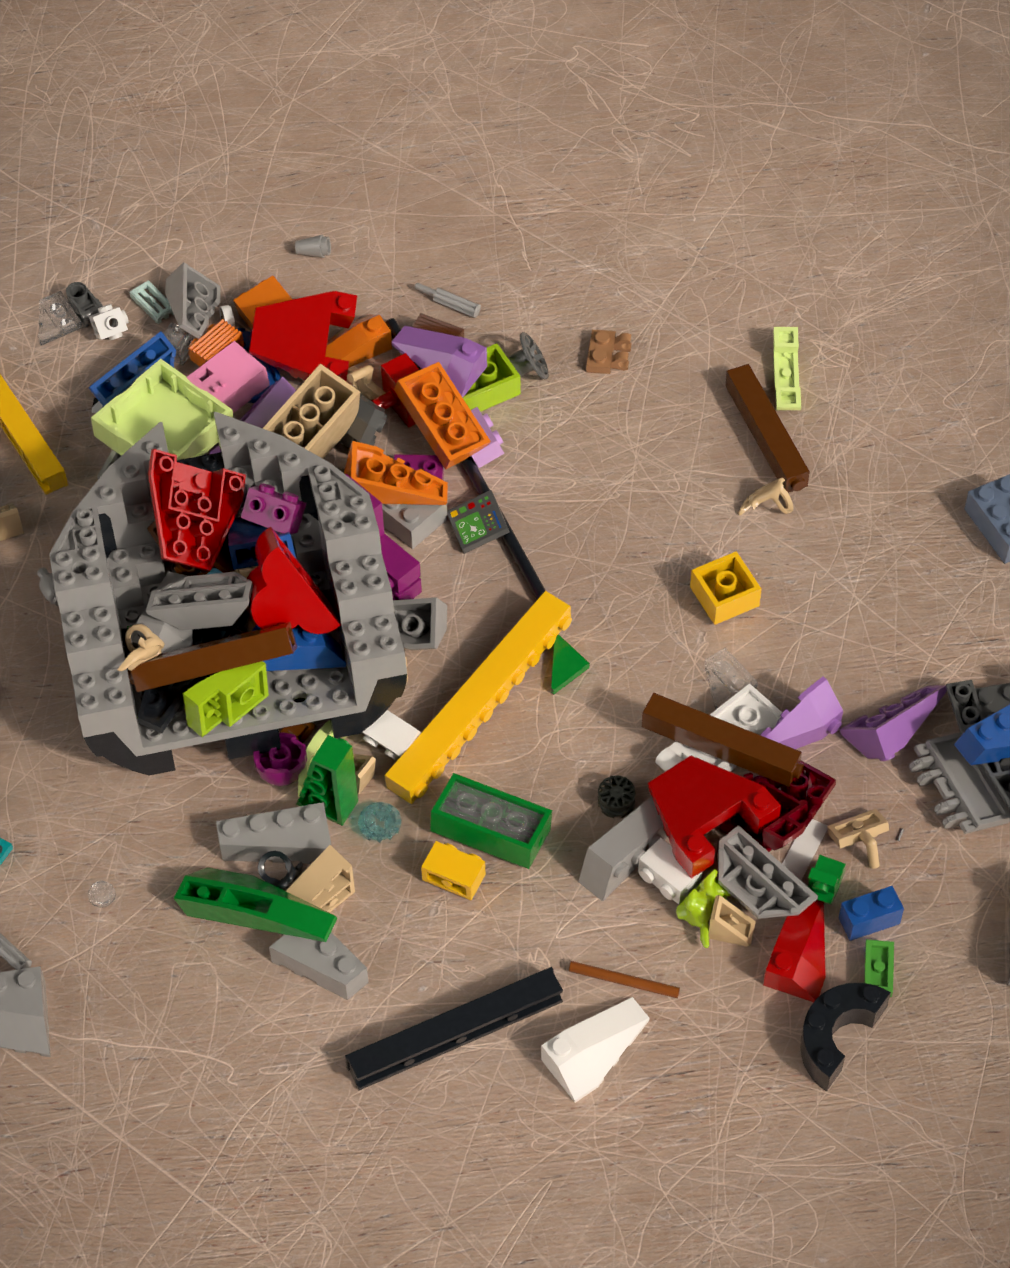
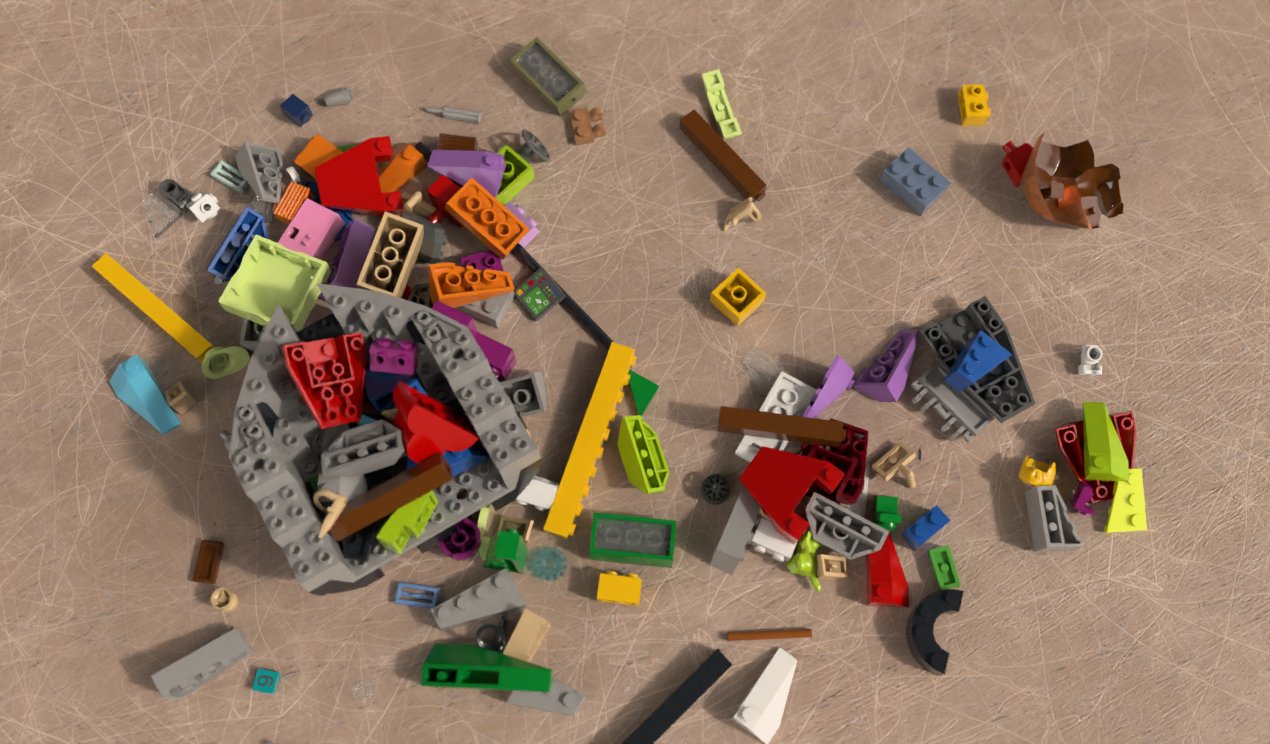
camera: 20 degrees left, 15 degrees up
(66, 492) = (224, 361): none -> yellowish green piece
(198, 818) = (434, 598): none -> medium blue tile
(257, 248) = (296, 110): none -> dark blue brick
(538, 728) = (642, 455): none -> lime wedge
(579, 284) = (548, 76): none -> brick

